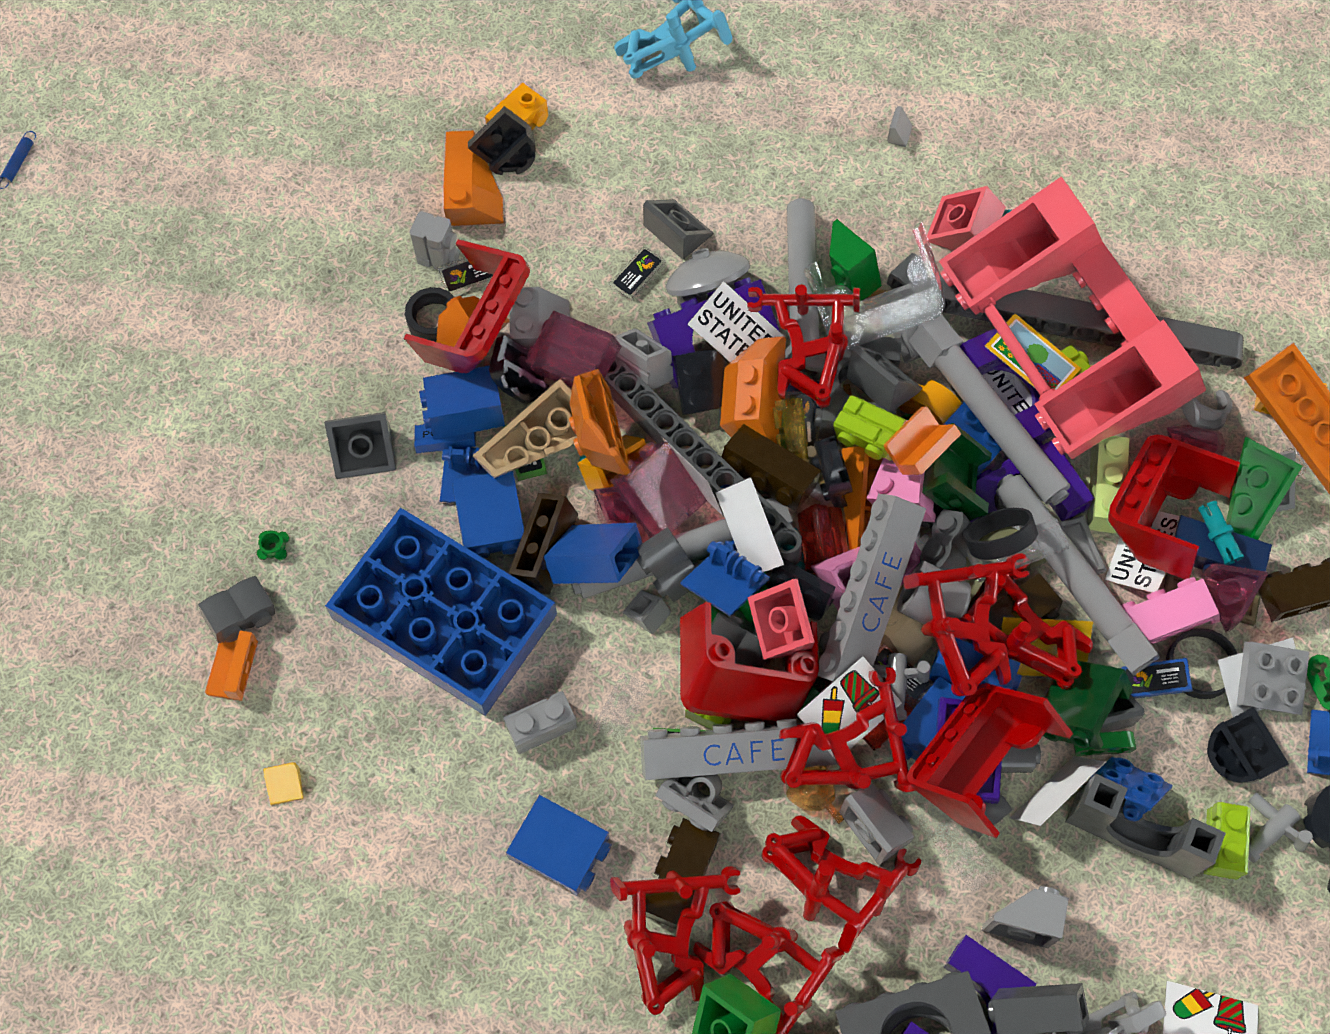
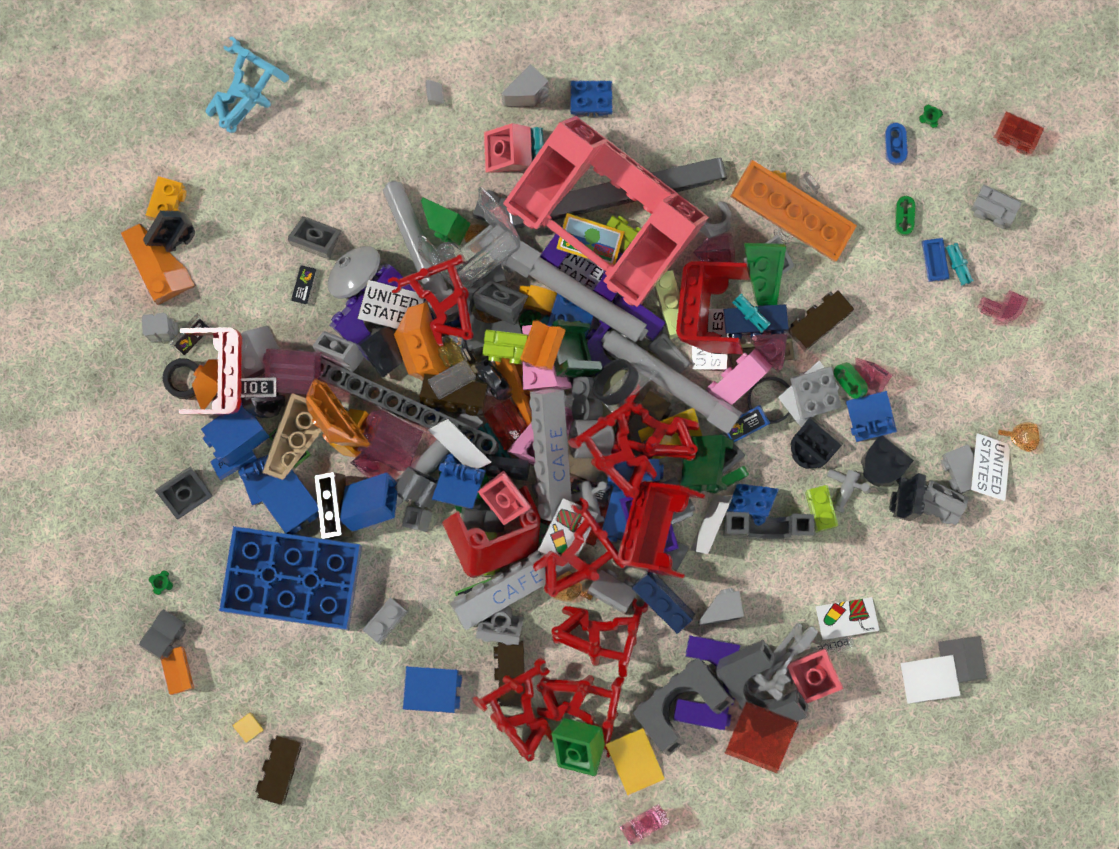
camera: 20 degrees left, 15 degrees up
(294, 861) = (279, 769): none -> dark brown brick
(518, 351) = (258, 387): none -> sticker
(776, 443) = (452, 379): none -> clear tile
(946, 868) = (664, 601): none -> dark blue brick
(1019, 161) = (526, 89): none -> light grey slope
(1102, 207) = (591, 98): none -> blue hinge

